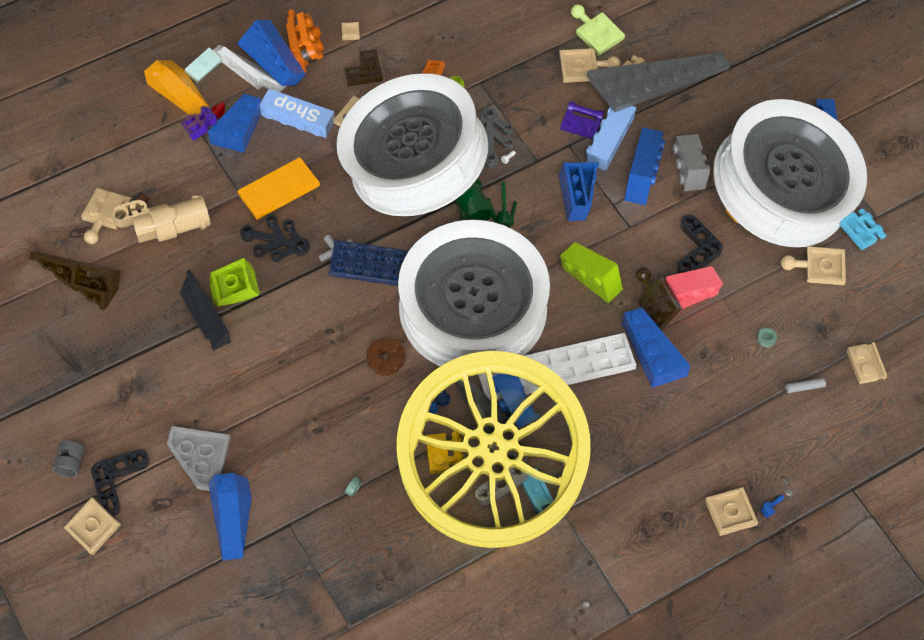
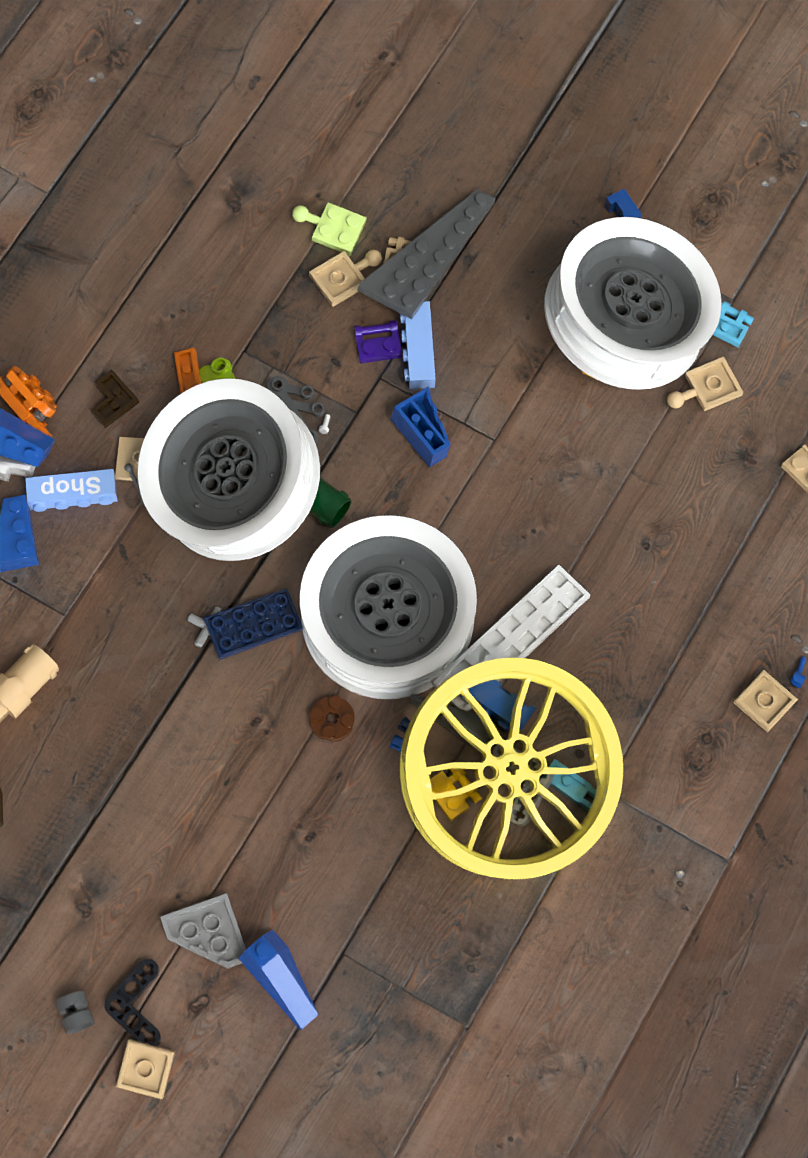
camera: 30 degrees left, 10 degrees up
(204, 313) = (114, 772): black wedge -> none
(233, 283) = (126, 724): lime slope -> none
(277, 240) = (140, 648): black plant -> none
(278, 188) = (105, 588): light orange tile -> none
(350, 31) = (67, 359): tan tile -> none
(353, 486) = (386, 878): sand green tile -> none
(503, 216) = (363, 500): dark green plant -> none
(593, 271) = (488, 512): lime wedge -> none
(644, 166) = (474, 363): blue wedge -> none
(654, 350) = (596, 567): blue wedge -> none
(659, 300) = (574, 513): dark brown plate -> none
(691, 162) = (518, 335): light grey wedge -> none
(695, 285) = (594, 484): coral wedge -> none
(704, 245) = (582, 422): black beam -> none
(766, 337) = (697, 493): sand green tile -> none
(805, 385) = (763, 526): light grey piece -> none

